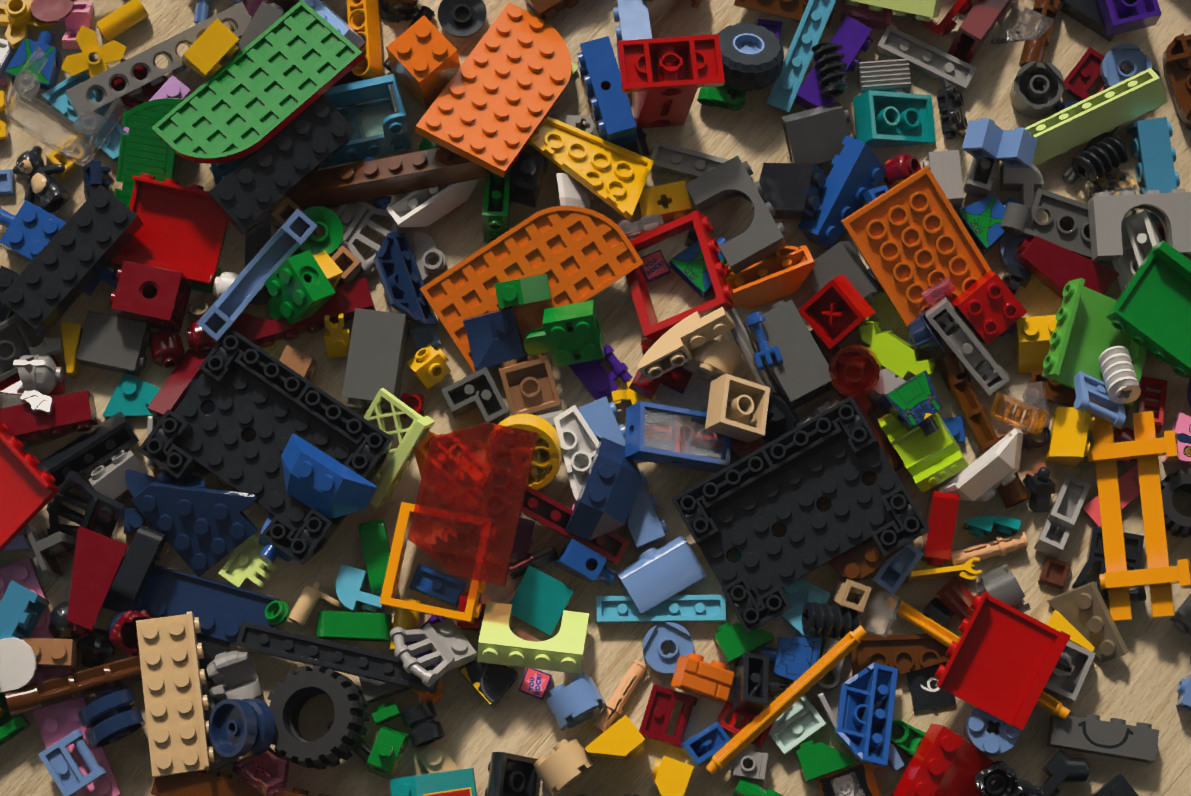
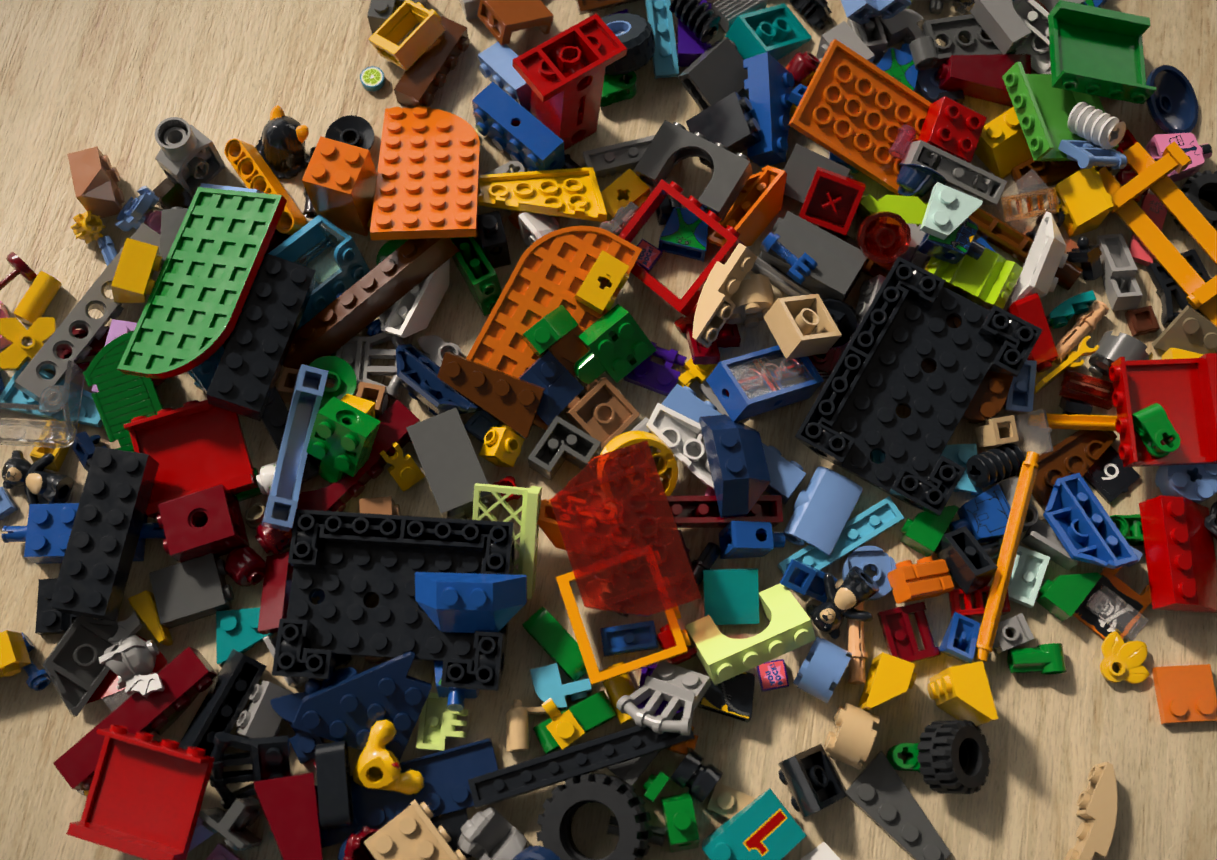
camera: 35 degrees left, 5 degrees down
(180, 571) = (380, 768): none -> yellow head
(277, 612) = (495, 752): green plate -> none
(340, 624) = (563, 726): none -> yellow plate
(448, 319) = (498, 393): none -> reddish brown wing
(574, 276) = (610, 269): none -> yellow brick
(610, 623) = (805, 580): none -> blue slope
(642, 653) = (841, 603): none -> black piece
(919, 380) = (947, 210): none -> light aqua wing
(974, 664) = (1154, 427): none -> green piece

